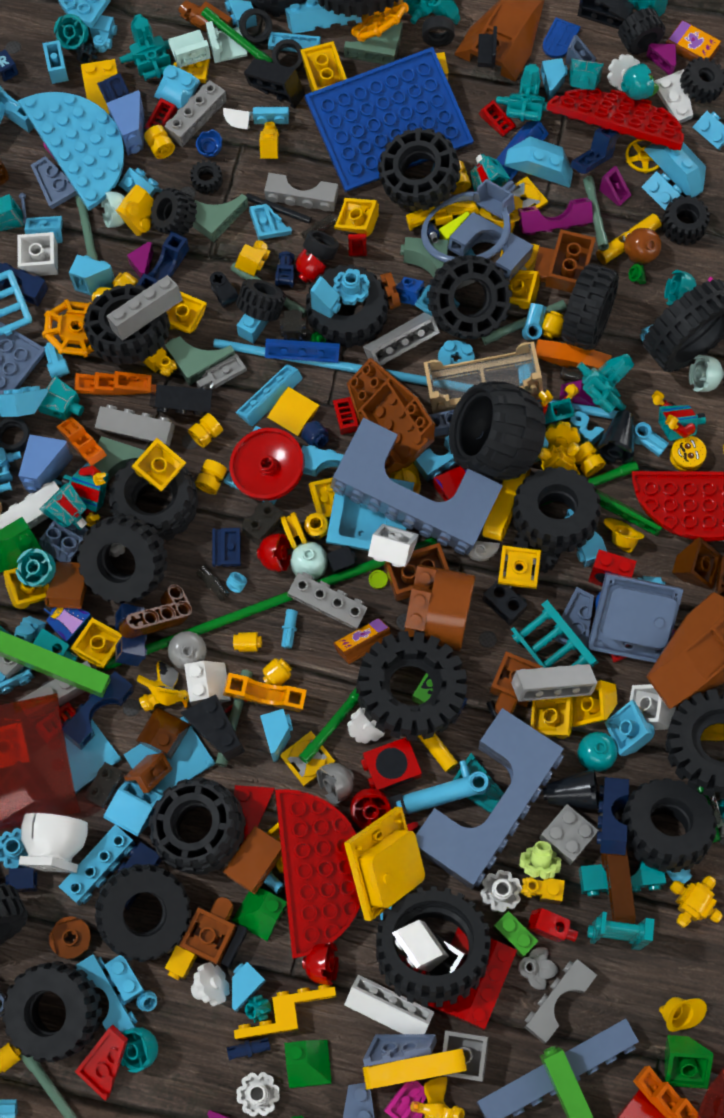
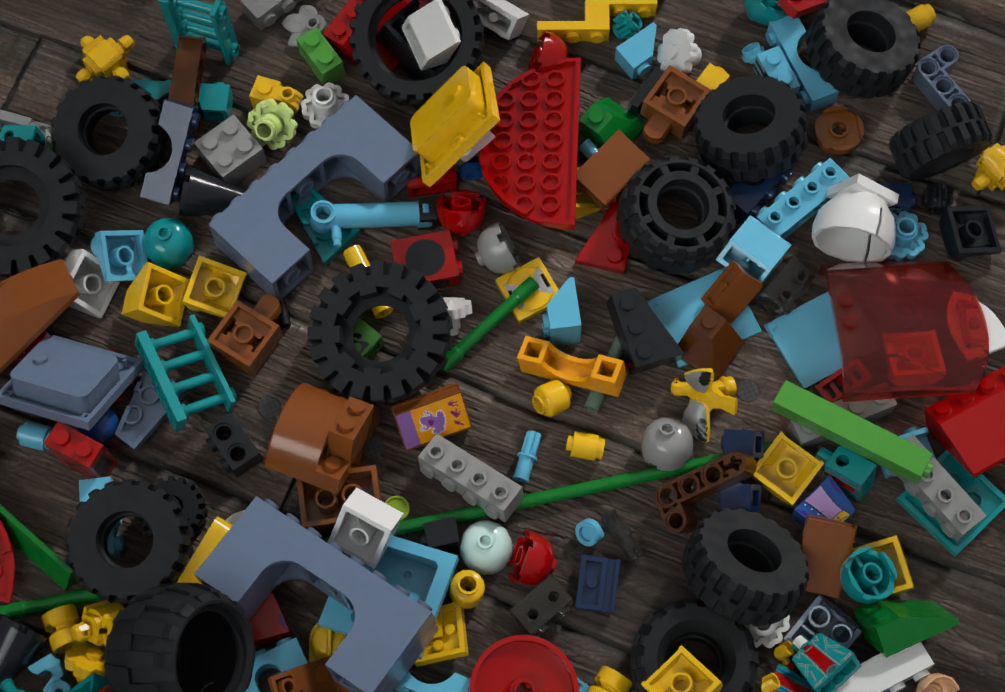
camera: 170 degrees left, 0 degrees up
(29, 628) = (884, 493): medium azure leg -> none
(79, 728) = (815, 362): dark blue arch -> none
(205, 680) = (645, 398): white slope -> none
(292, 529) = (499, 587): yellow head -> none
(519, 556) = (200, 463): yellow piece -> none
(543, 924) = (279, 58): red torso -> none
(554, 682) = (198, 309): light grey brick -> none
(623, 535) = (48, 512): yellow piece -> none

